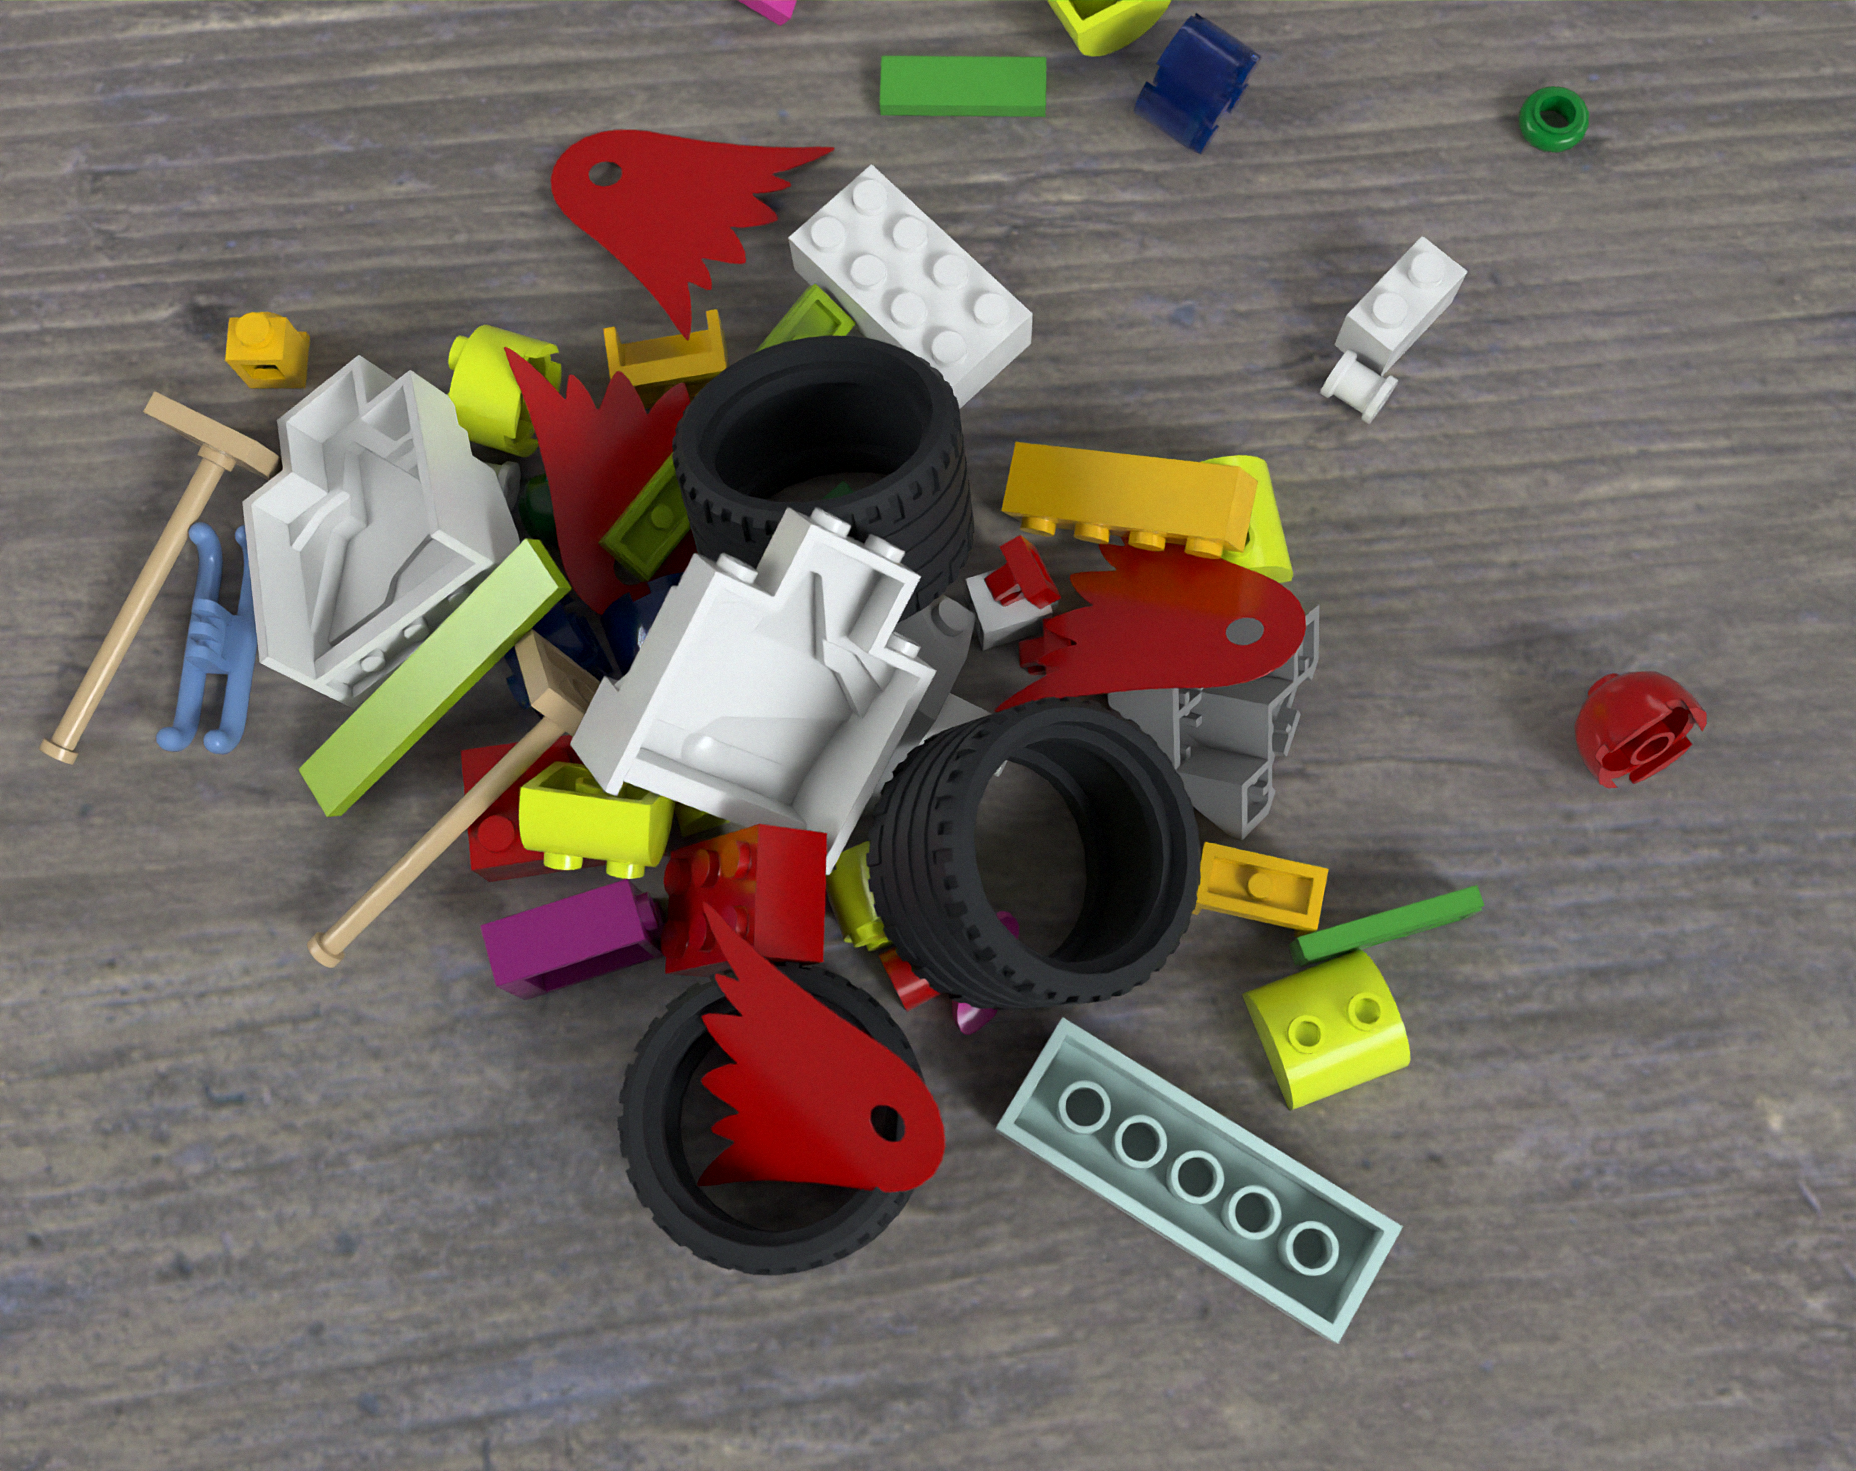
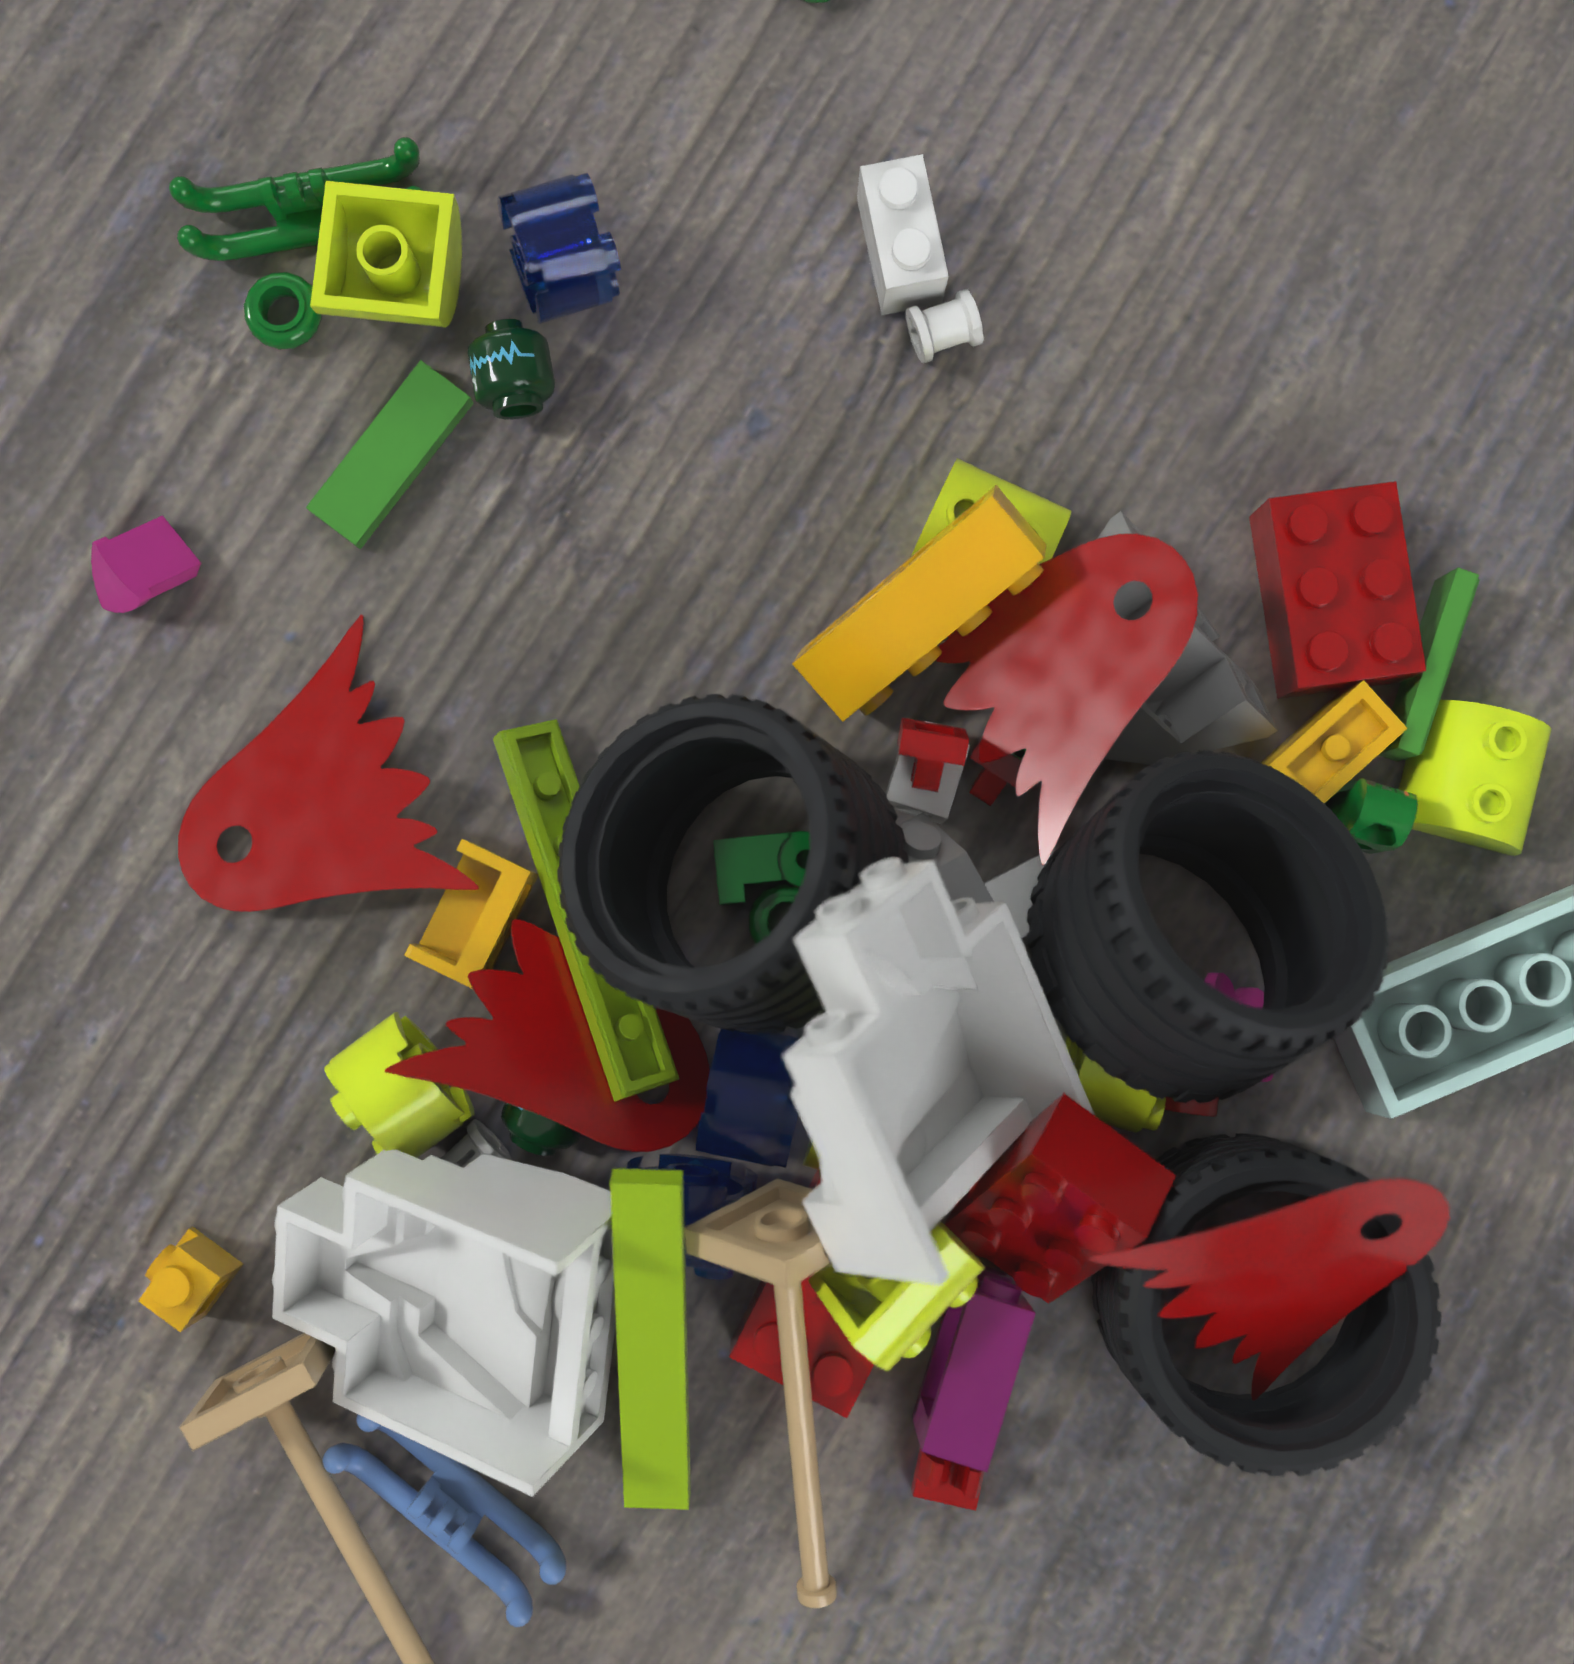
camera: 65 degrees left, 10 degrees up
(482, 1003) = (946, 1482): none -> red tile
(911, 283) = (564, 648): white brick -> none
(1085, 116) = (511, 369): none -> dark green head
(1226, 954) = (1375, 814): none -> green leg
(1388, 810) = (1337, 589): none -> red brick
(1635, 725) = (1406, 331): red cylinder -> none

